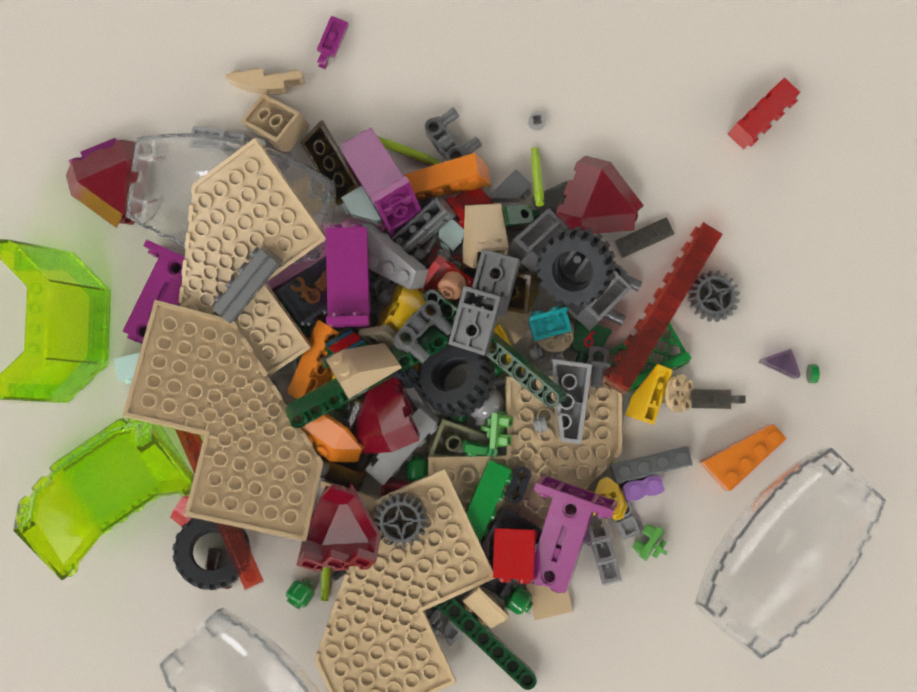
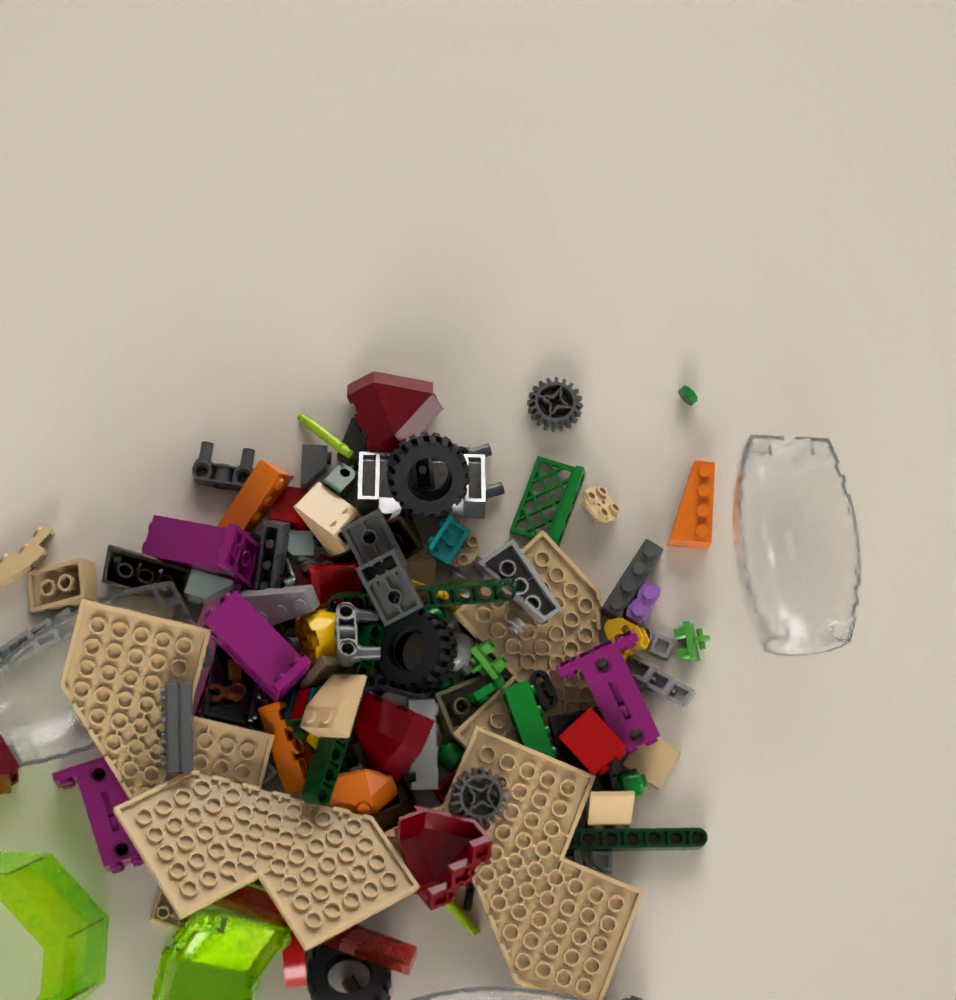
camera: 55 degrees left, 10 degrees down
(125, 367) = (134, 894): light aqua slope -> none
(300, 593) = (452, 946): green head -> none
(331, 40) = (45, 476): magenta plate -> none
(409, 152) = (203, 508): lime piece -> none
(451, 284) = (342, 580): nougat head -> none
(534, 115) = (276, 397): light grey bush -> none
(585, 339) = (491, 530): dark green torso -> none
(598, 367) = (520, 538): dark grey bracket -> none
(644, 237) = (456, 408): clear smoke plate -> none
(648, 397) = (579, 528): yellow slope -> none
(661, 311) = (525, 449): clear red brick -> none
(714, 399) = (632, 484): clear smoke plate -> none
(763, 113) = (457, 226): red wedge -> none
(783, 363) = (658, 408): clear purple slope -> none

